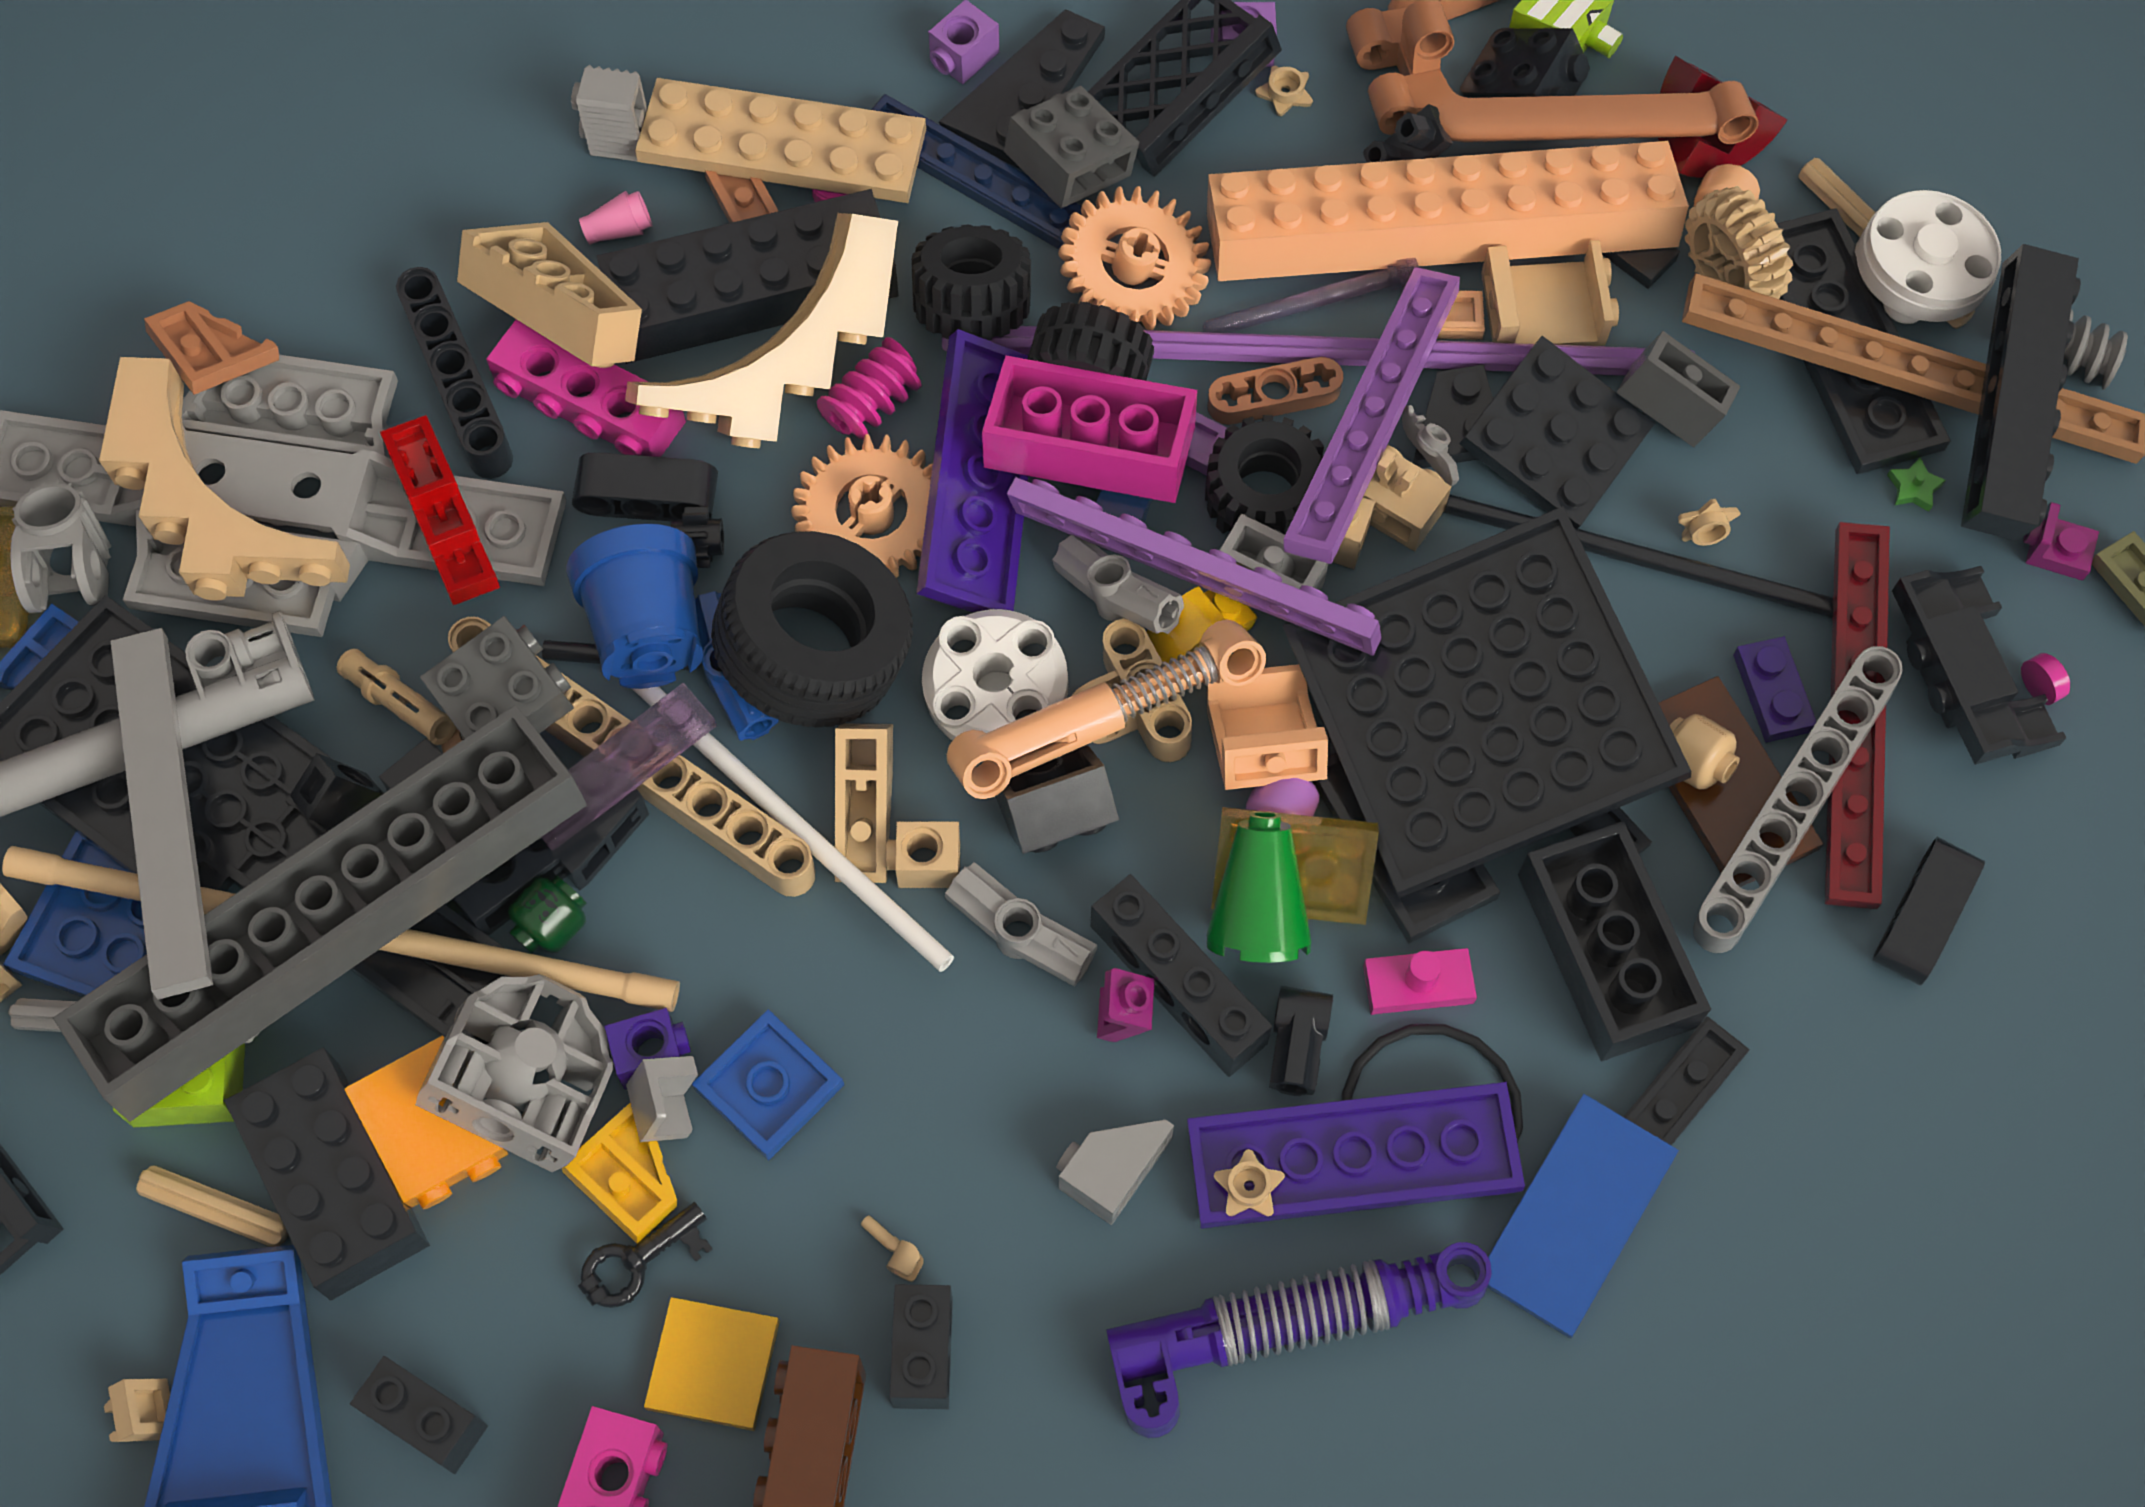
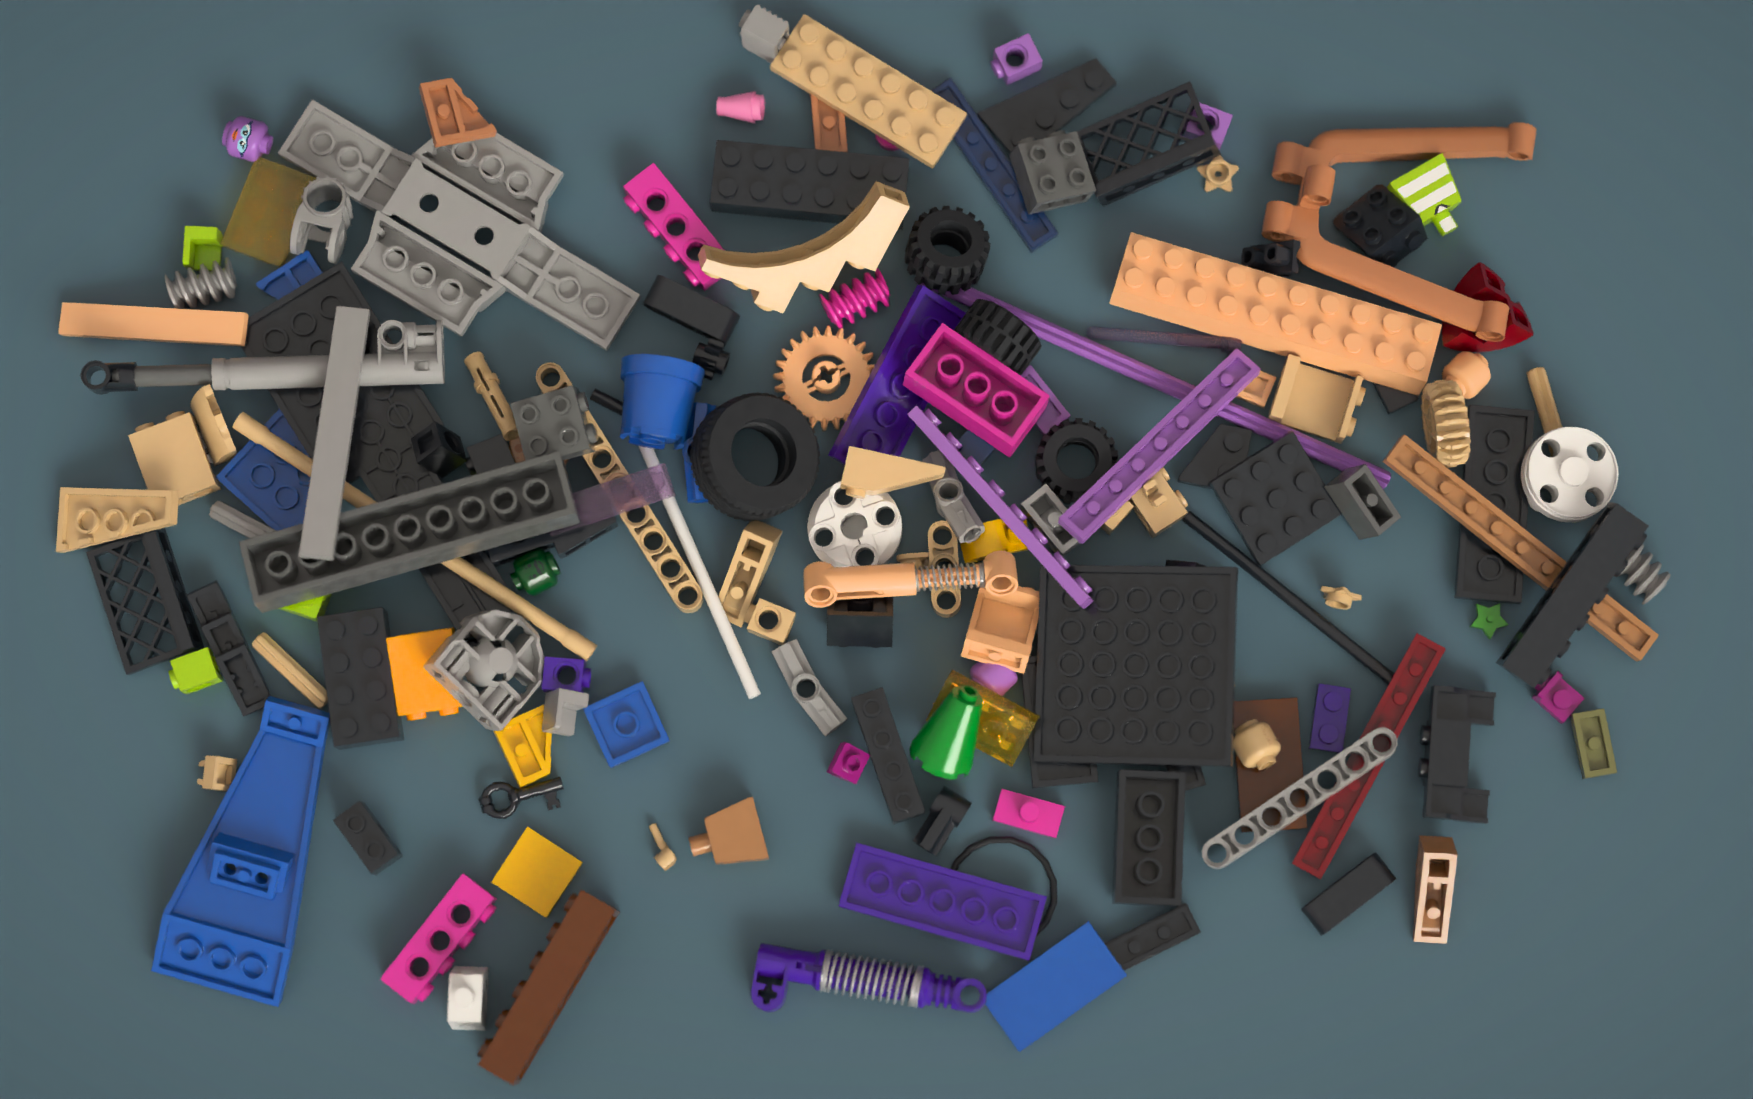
camera: 20 degrees right, 15 degrees up
(55, 1265) = (195, 671): none -> lime brick
(101, 1209) = (229, 647): none -> black slope
(221, 546) = (397, 177): tan arch -> none
(440, 510) = (559, 282): red slope -> none
(457, 390) = (597, 166): black beam -> none
(551, 289) = (679, 156): tan wedge -> none
(921, 1346) = (655, 911): black brick -> none
(996, 1182) = (732, 835): none -> medium nougat torso
(1001, 579) = (879, 473): none -> tan slope
(1112, 1165) = (802, 852): light grey slope -> none
(1144, 233) = (1084, 289): light nougat gear -> none
(1248, 1170) = (883, 896): tan plate -> none
(1286, 374) = (1135, 406): nougat beam -> none
(1432, 443) = (1191, 474): light grey piece -> none
(2043, 854) = (1434, 888): none -> medium nougat slope
(2045, 676) = (1497, 780): dark pink tile -> none

